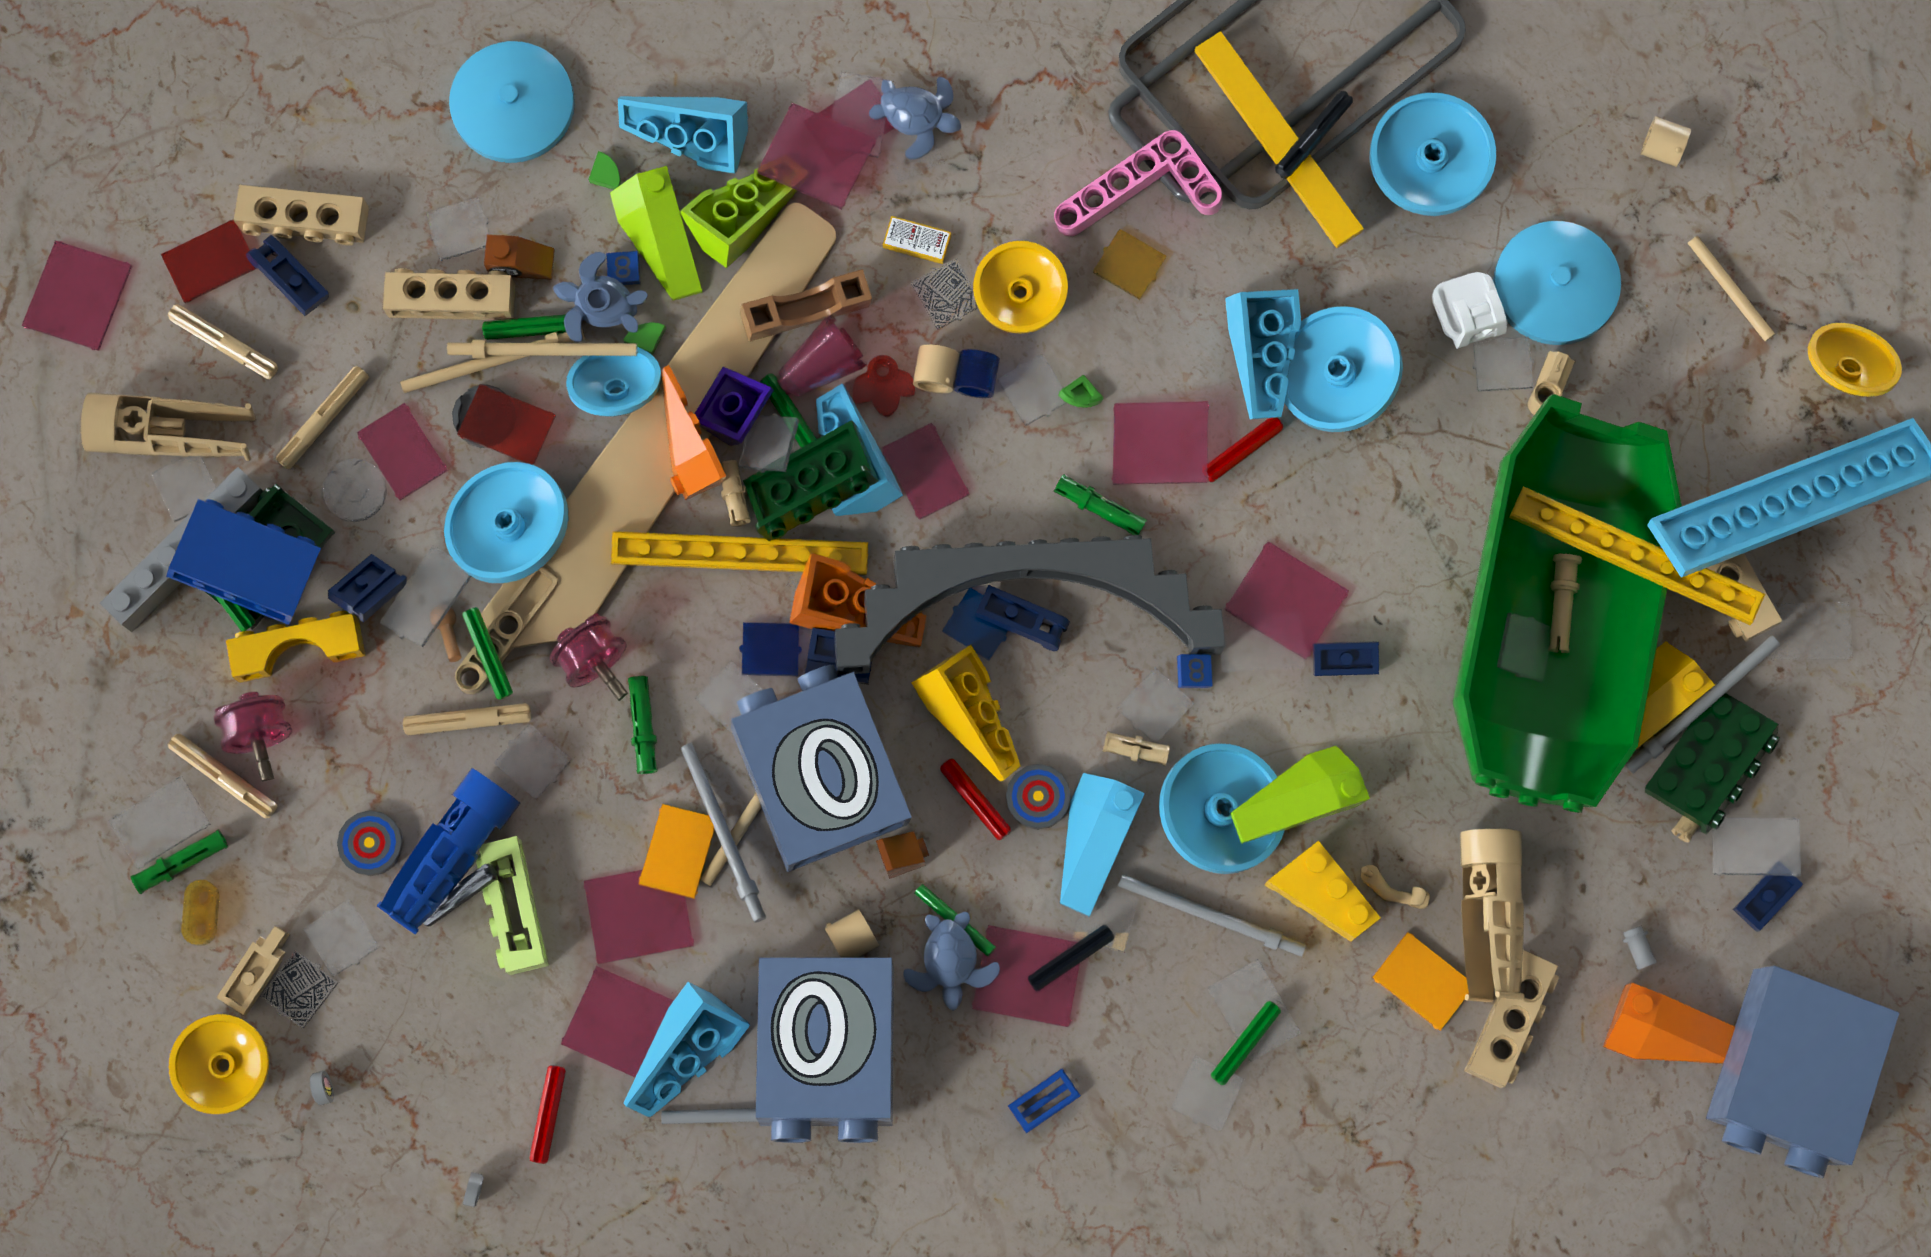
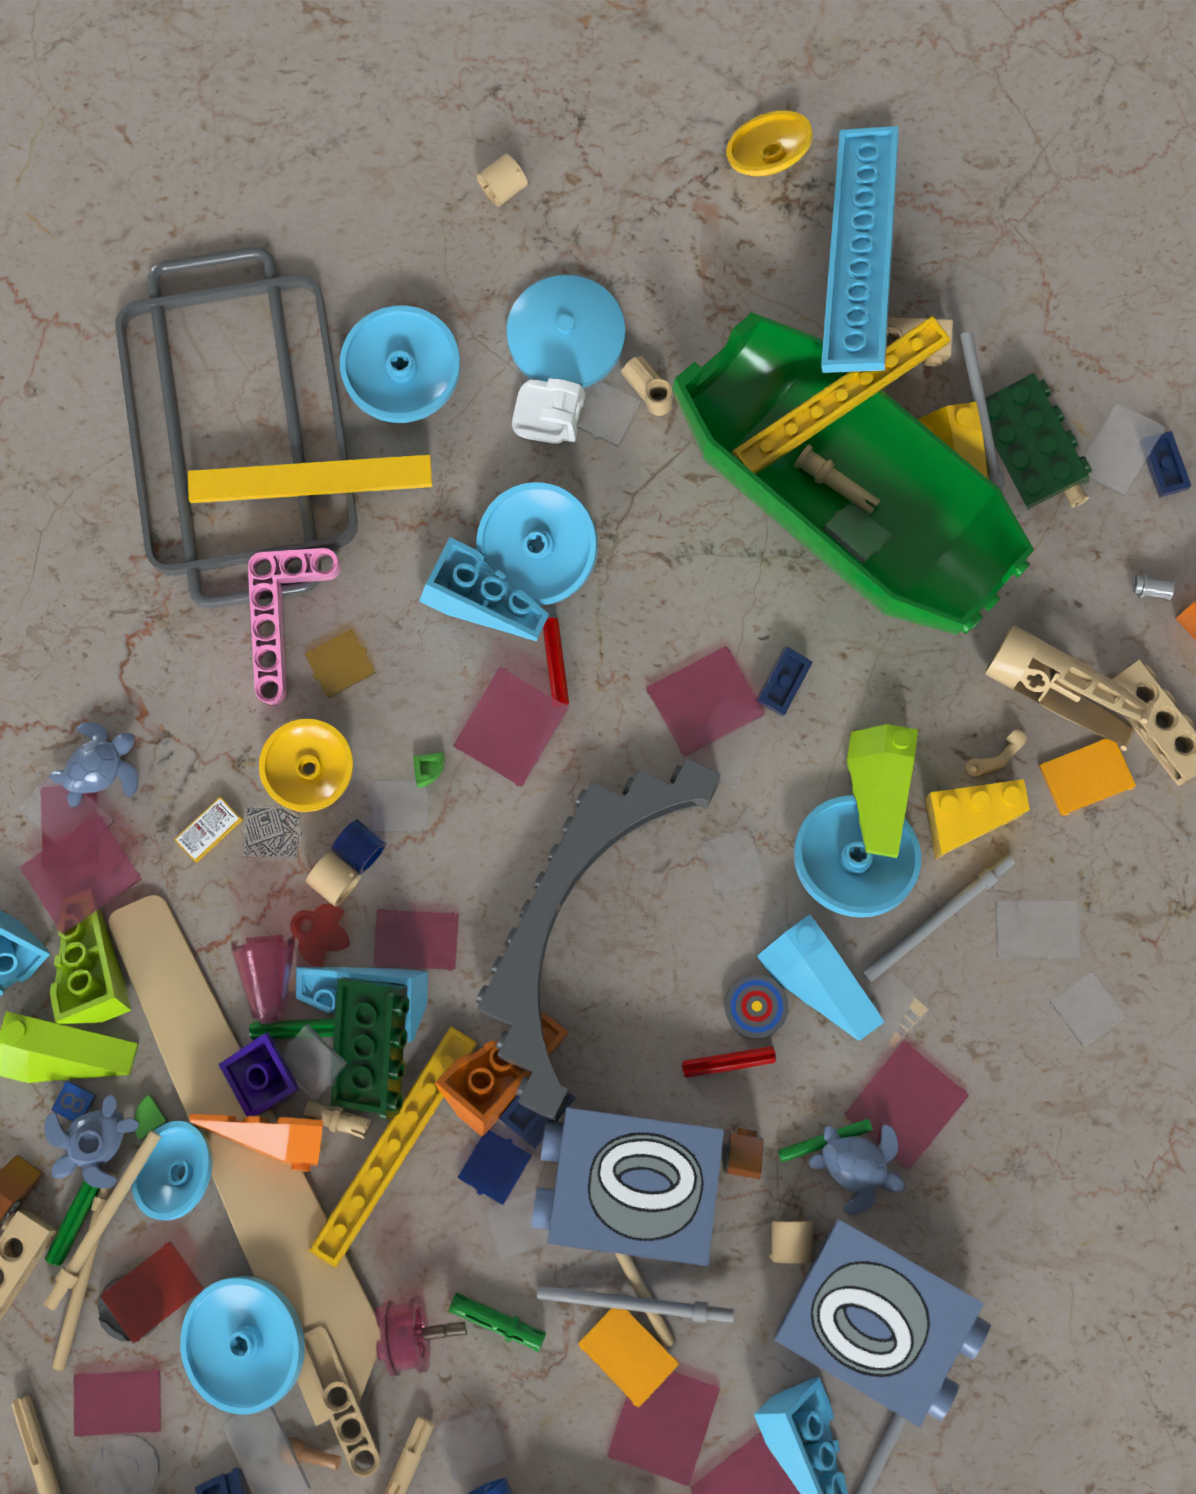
camera: 60 degrees left, 0 degrees up
(487, 653) = (353, 1432): green axle -> none
(783, 313) = (212, 952): medium nougat arch -> none
(962, 703) = (640, 1025): yellow wedge -> none
(972, 630) = (577, 970): clear blue piece -> none
(1021, 1116) = (1009, 1153): blue tile -> none
(1022, 617) = (594, 931): dark blue plate -> none
(1070, 957) = (913, 1059): black axle -> none
(1094, 502) = (529, 811): green pin -> none
(1136, 748) = (762, 899): tan pin -> none
(1194, 671) = (723, 811): blue tile -> none
(1245, 1043) = (1064, 952): green axle -> none
(1313, 135) = (325, 447): black axle -> none
(1731, 288) = (652, 203): tan bar -> none

